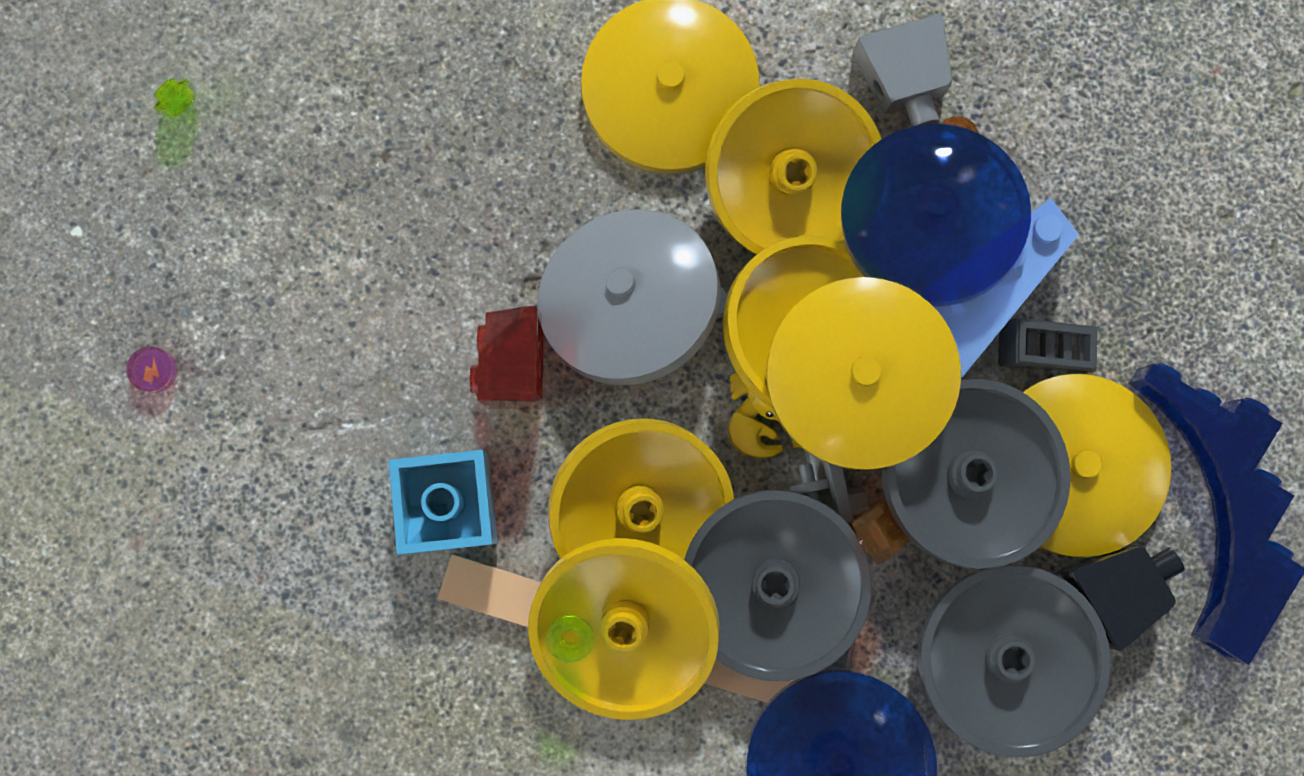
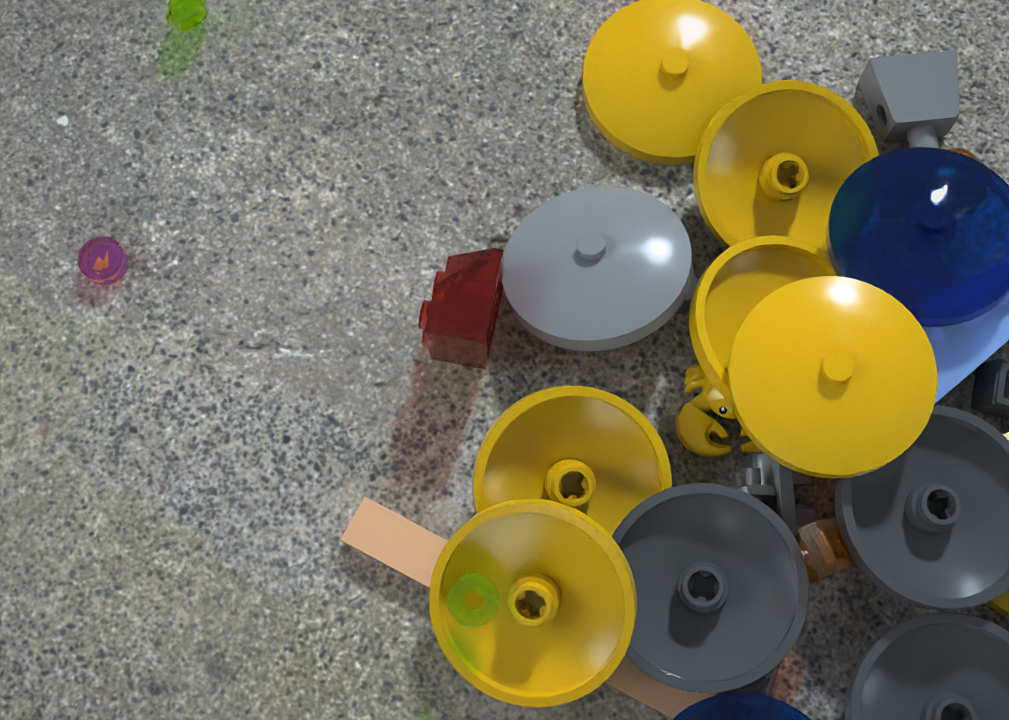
camera: 15 degrees right, 10 degrees down
(443, 501) = (367, 437): medium azure slope -> none

